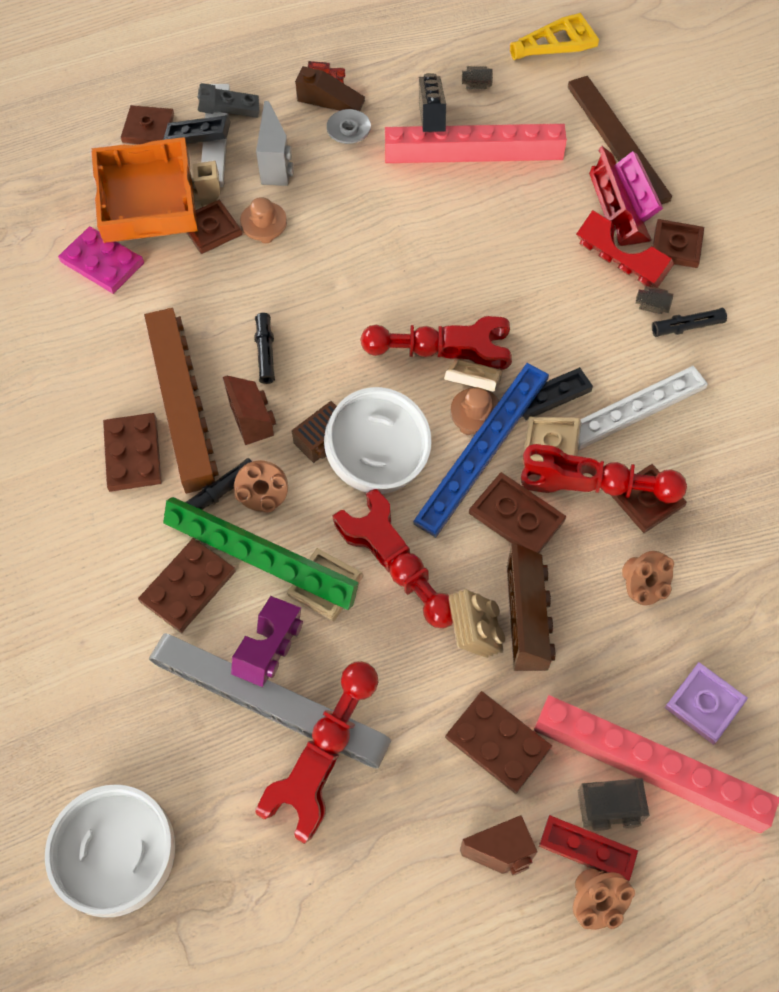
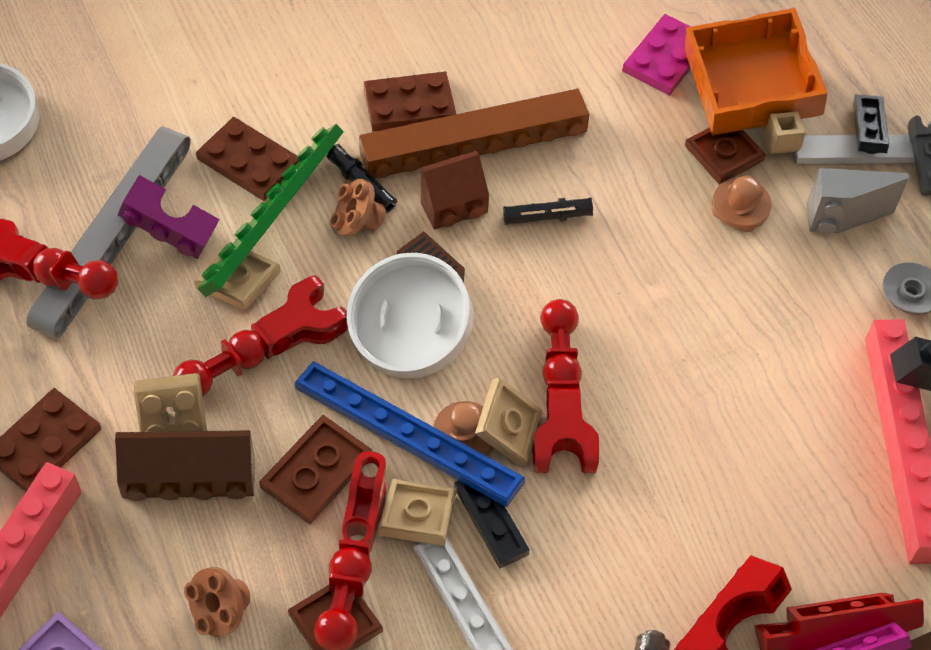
camera: 85 degrees right, 5 degrees down
(146, 124) = (882, 78): copper plate -> none

